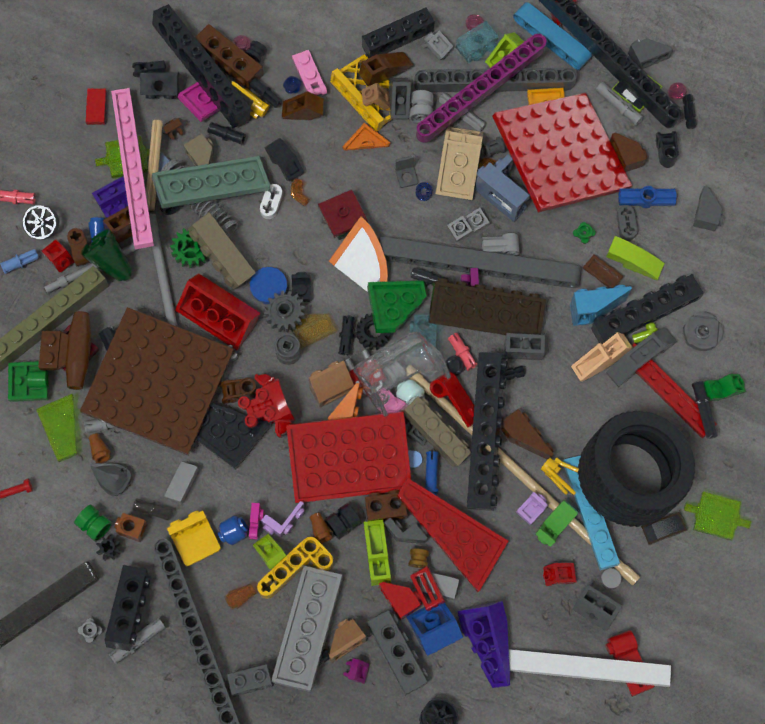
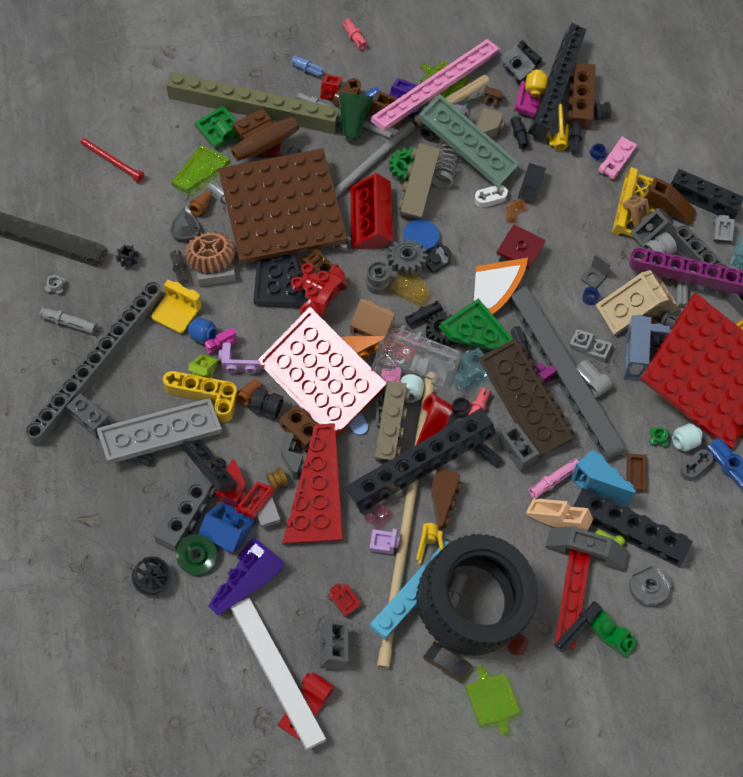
camera: 55 degrees right, 10 degrees down
(41, 222) = (347, 58): wheel -> none
(95, 525) = (139, 233): green wheel -> none
(96, 106) = (468, 40): red tile -> none
(129, 578) = (74, 298): black brick -> none
(135, 534) = (154, 267): dark orange brick -> none
(151, 468) = (210, 252): none -> nougat gear
(193, 84) = (536, 83): none -> yellow head
(237, 597) = (152, 368): clear orange cone -> none
(242, 42) = (601, 97): clear pink plate -> none
(303, 107) = (586, 169): reddish brown slope -> none
(346, 639) = (167, 464): medium nougat slope -> none
(358, 670) = (150, 491): magenta tile -> none
(365, 138) = (599, 228): orange tile -> none
(373, 606) = (210, 466): none -> black hinge
(377, 552) = (259, 445): lime slope -> none
(431, 472) = (355, 445): blue pin -> none
(451, 670) = (193, 565): none -> dark green dish
(507, 497) = (383, 513): none -> clear pink arm
(556, 523) = (383, 566): bright green bracket -> none
(566, 338) = (548, 482): none -> bright pink pin
(601, 212) = (687, 437): none -> light aqua head
(610, 578) = (370, 644): light grey tile -> none
(635, 258) = (669, 489): lime slope -> none

